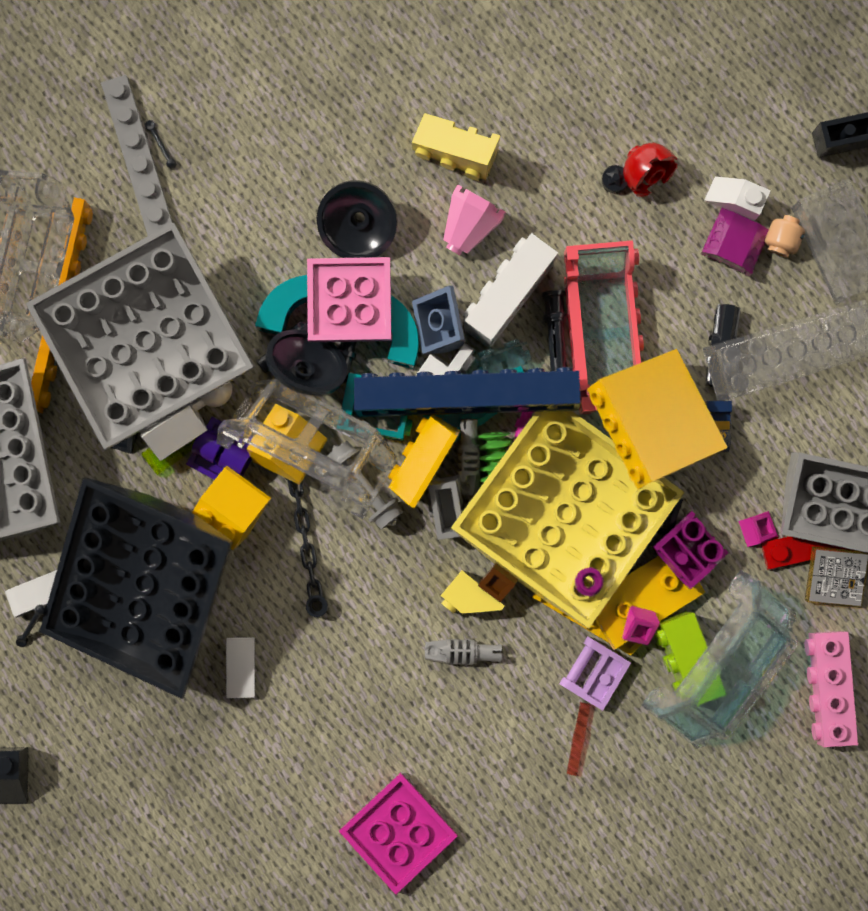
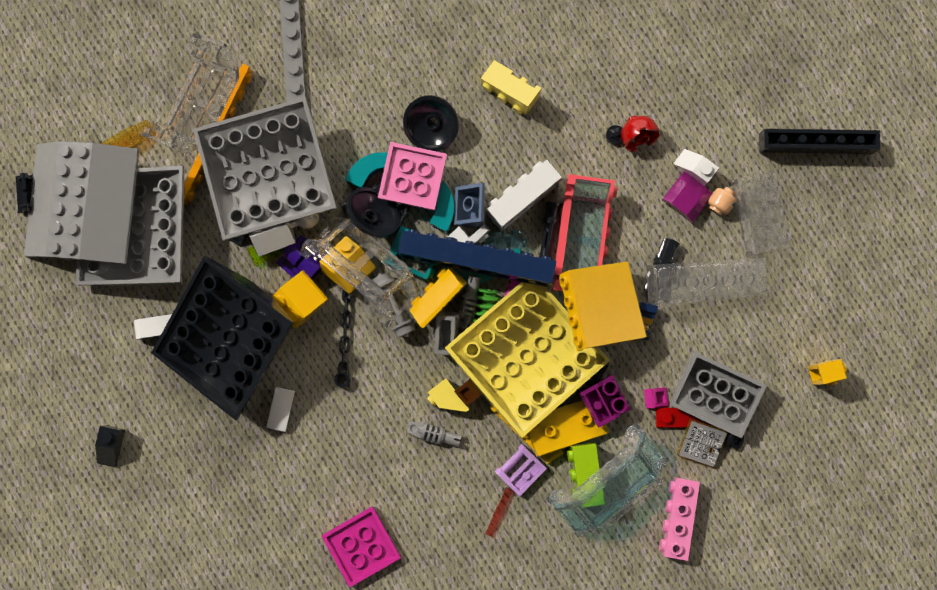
camera: 15 degrees right, 0 degrees up
(21, 640) = (137, 356): black hinge -> none
(150, 126) = (305, 25): black hinge -> none
(469, 220) = (508, 141): bright pink cone -> none
(597, 581) = (535, 403): magenta plate -> none
(640, 625) = (558, 444): dark pink slope -> none

